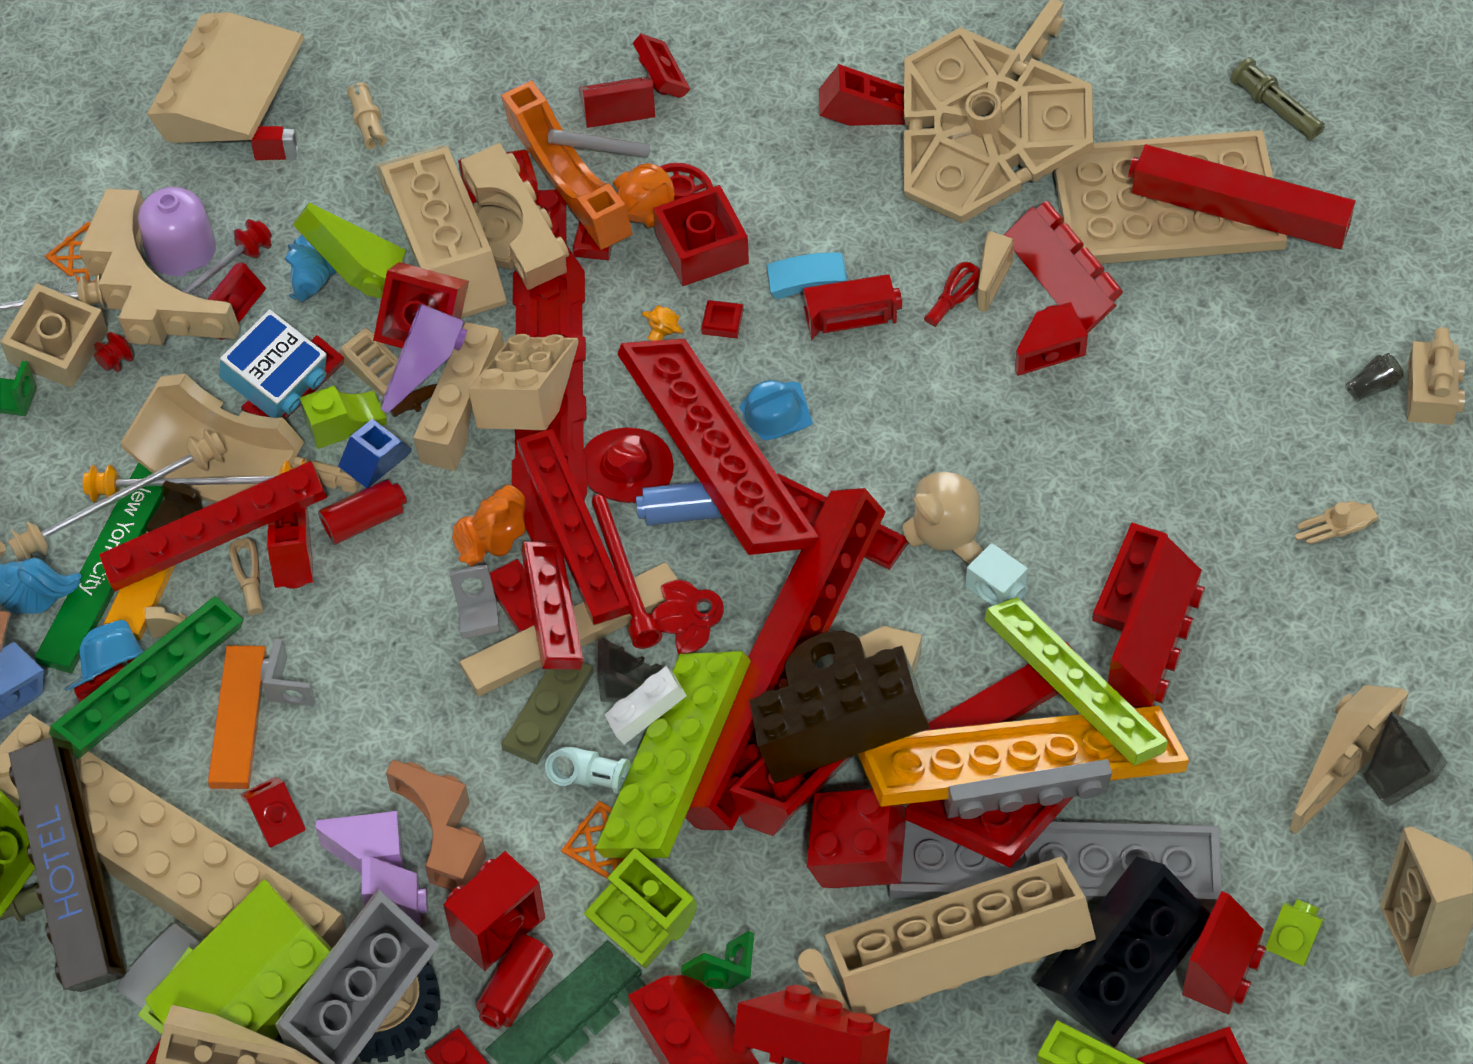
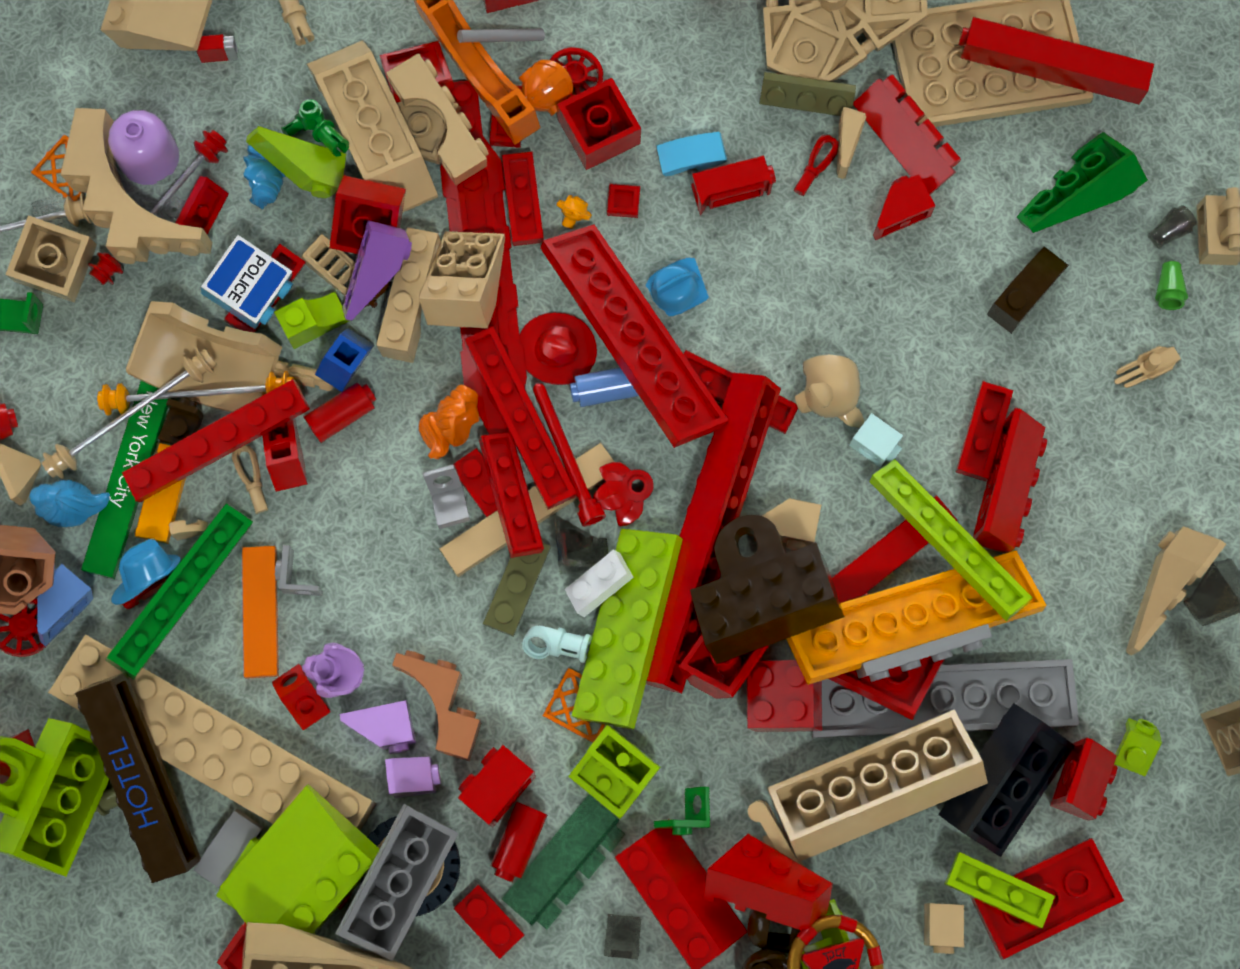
camera: 10 degrees left, 20 degrees up
(318, 778) = (334, 671): none -> lavender hair
(375, 215) = (312, 118): none -> green pin
(604, 308) = (522, 198): none -> red plate
(945, 220) = (806, 94): none -> olive plate
(1191, 433) = (1027, 289): none -> dark brown slope
(1292, 318) = (1102, 175): none -> green wedge
(1369, 440) = (1171, 287): none -> bright green cone

